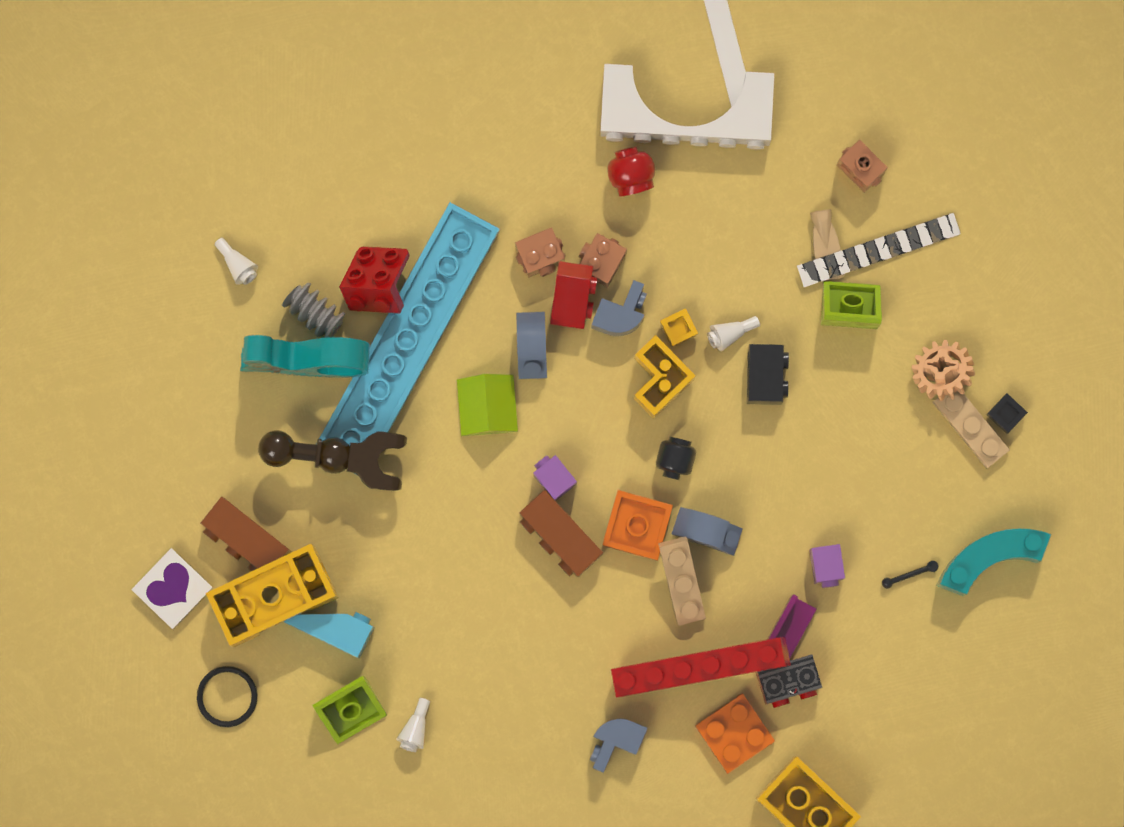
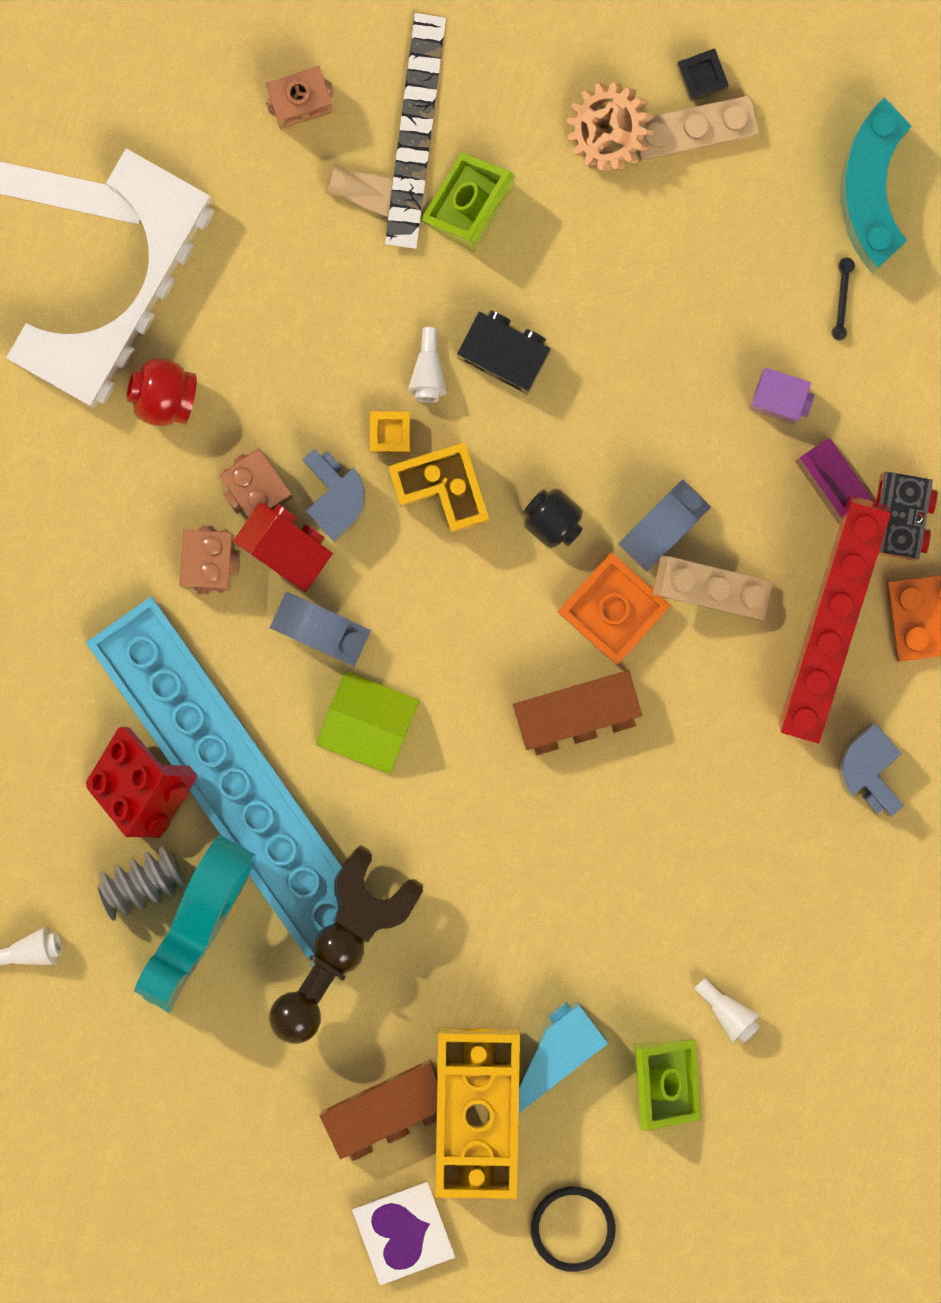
camera: 65 degrees left, 5 degrees up
(554, 477) = (501, 683): medium lavender brick -> none

